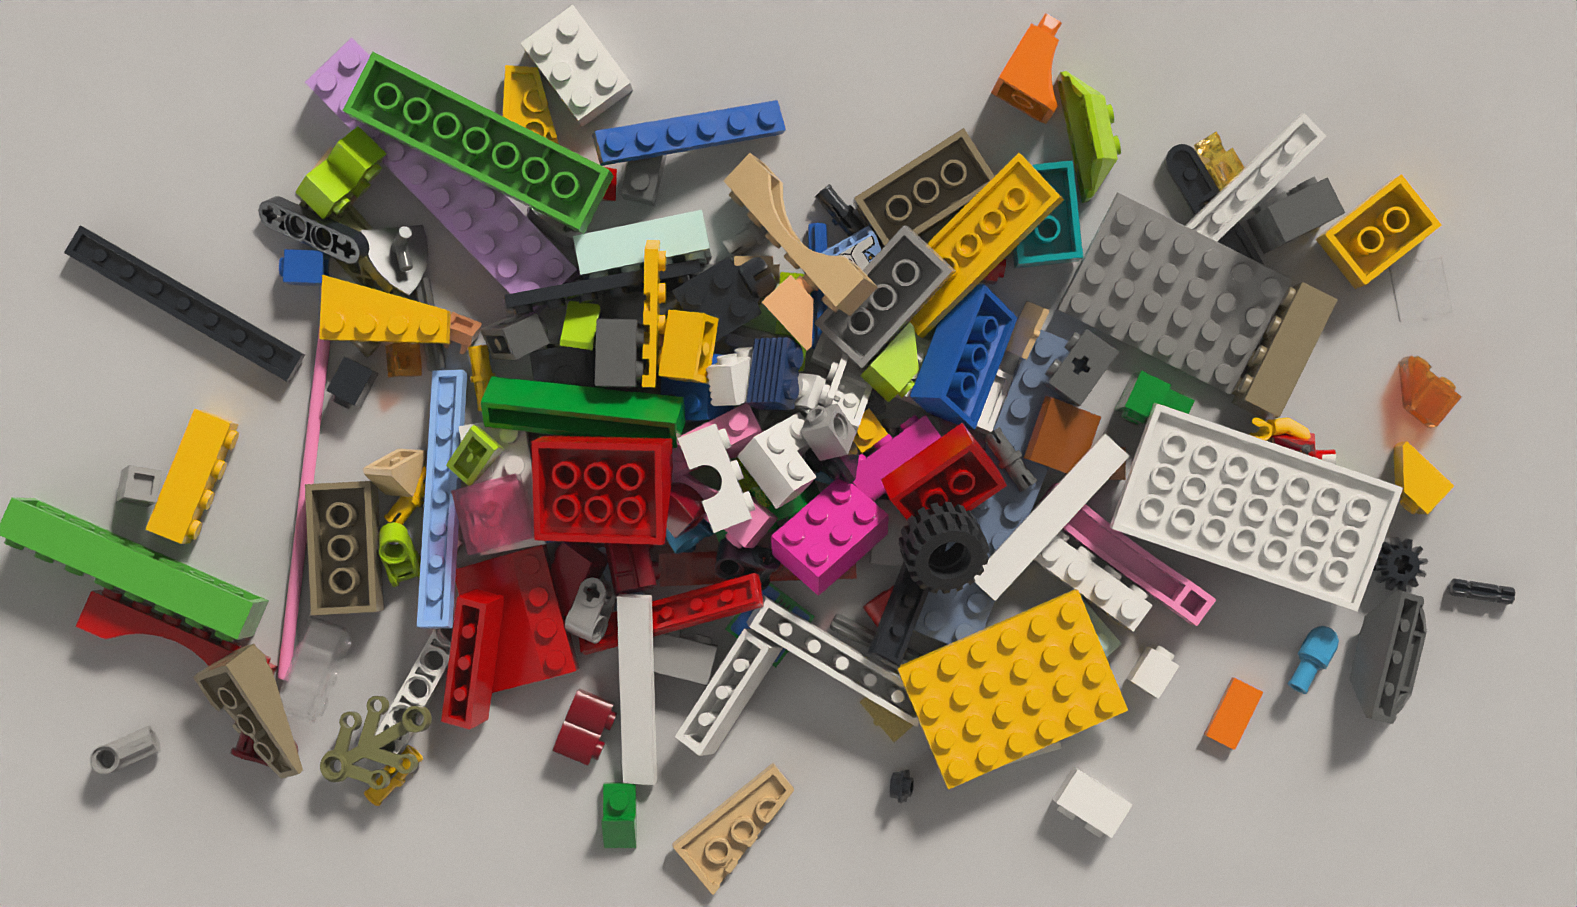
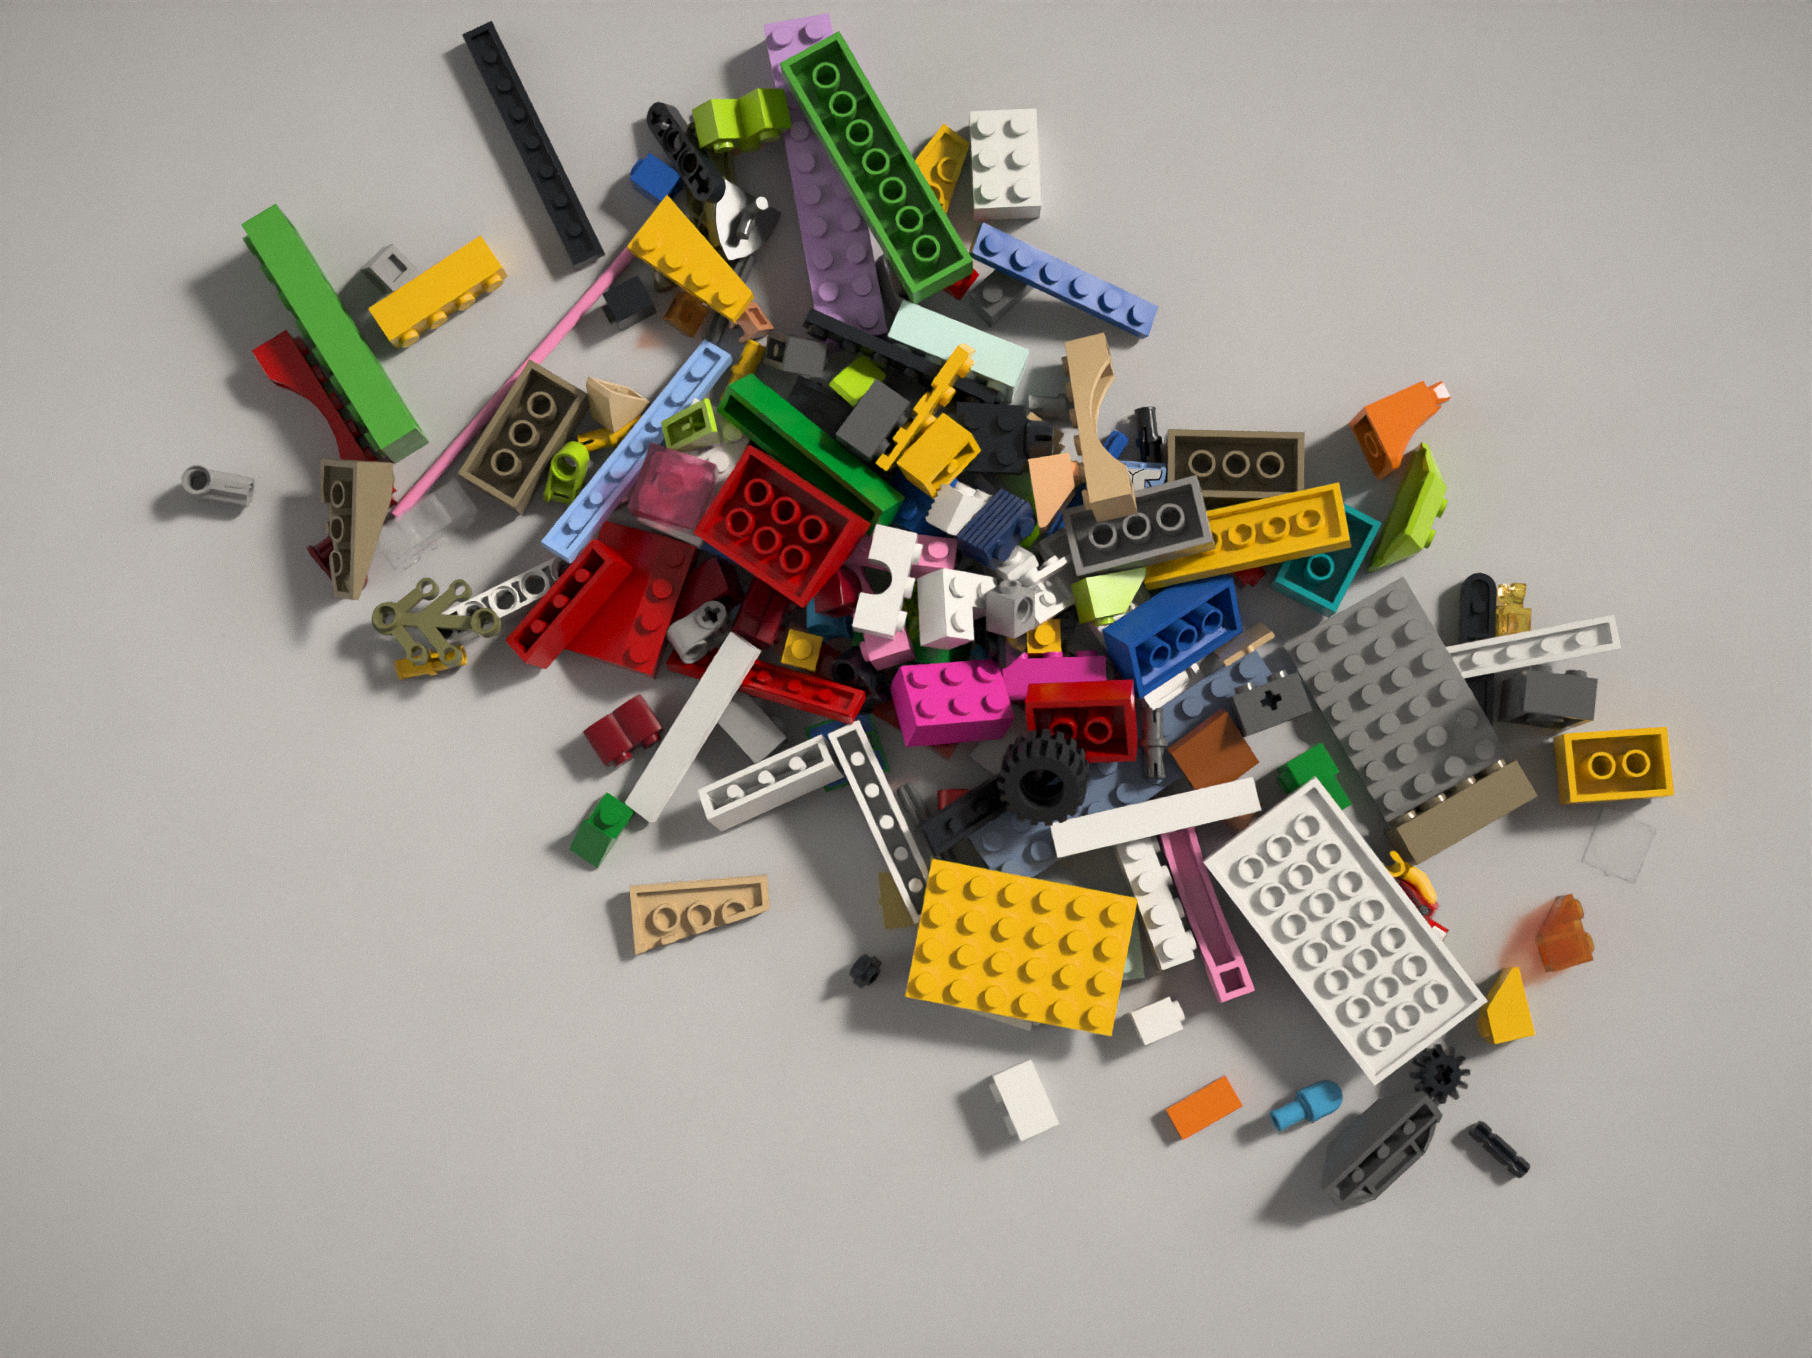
camera: 35 degrees right, 5 degrees down
(683, 572) = (802, 650): none -> yellow plate

